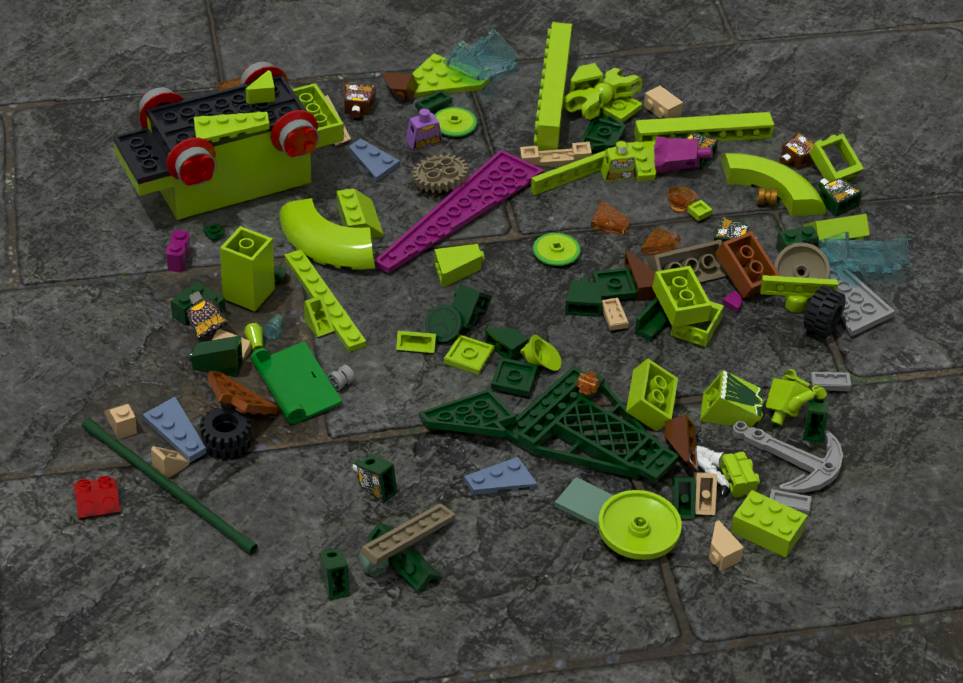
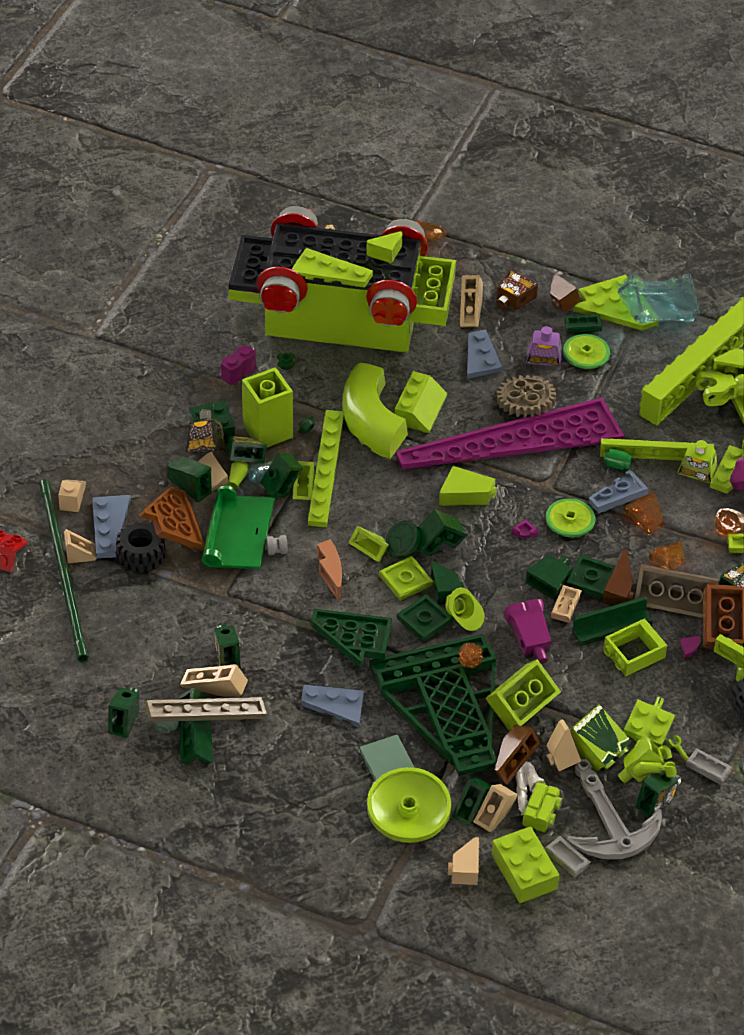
camera: 35 degrees right, 5 degrees up
(242, 315) = (243, 449): none -> dark green torso
(299, 318) = (281, 475): none -> dark green brick
(388, 509) = (217, 680): none -> tan slope
(403, 374) = (330, 567): none -> nougat slope
(529, 274) = (525, 530): none -> magenta tile
(555, 189) = (618, 459): none -> green brick
(556, 157) = (648, 428): tan slope -> none
(578, 213) = (621, 492): none -> sand blue wing
(603, 132) = (713, 425): dark green wing -> none
(607, 344) = (529, 627): none -> magenta piece
(681, 296) = (625, 617): lime brick -> none
(718, 418) = (562, 748): none -> tan slope
(757, 370) = (649, 721): none -> lime plate

